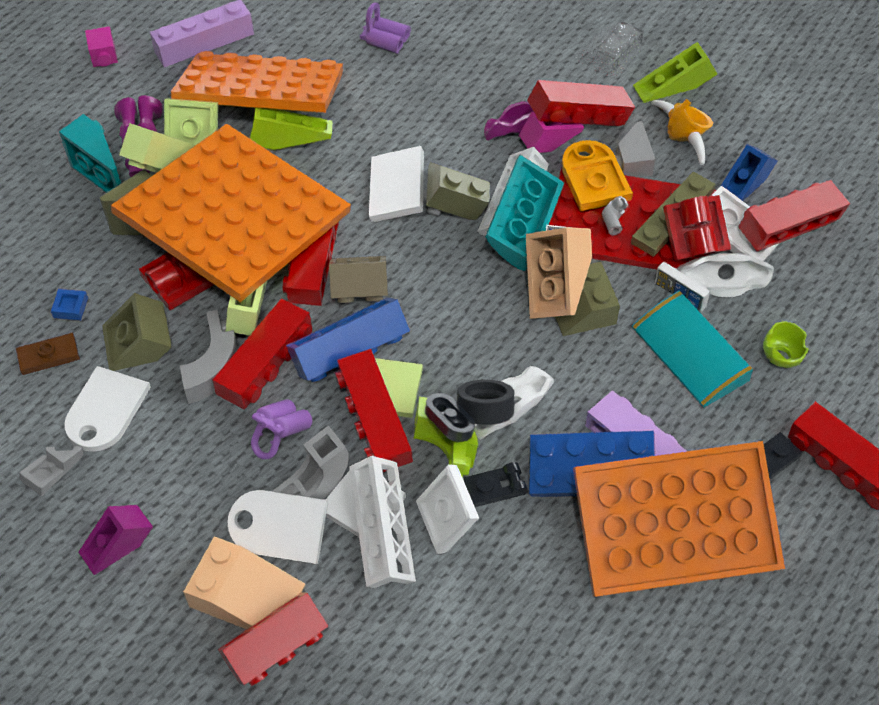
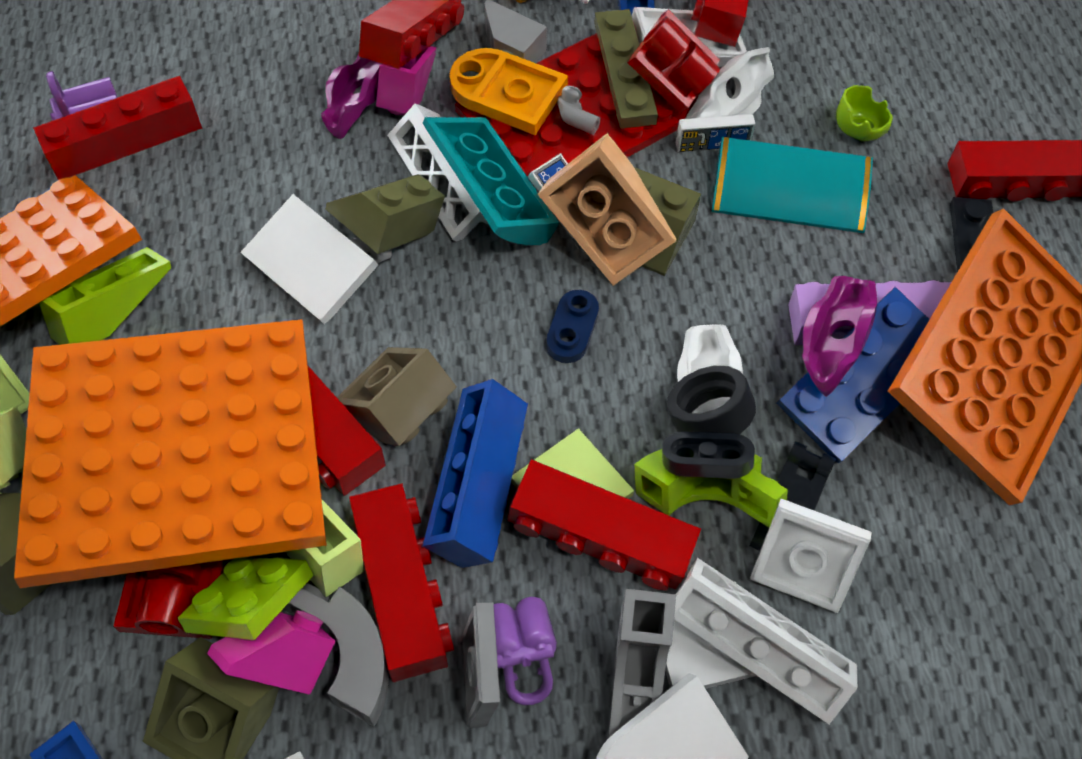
camera: 50 degrees left, 5 degrees up
(179, 330) = (284, 655): none -> dark pink slope
(198, 298) = (245, 597): none -> lime plate
(238, 418) = (480, 666): none -> light grey tile
(385, 54) = (118, 128): none -> red brick
(483, 319) = (572, 323): none -> dark blue plate
(594, 423) = (844, 304): none -> magenta piece

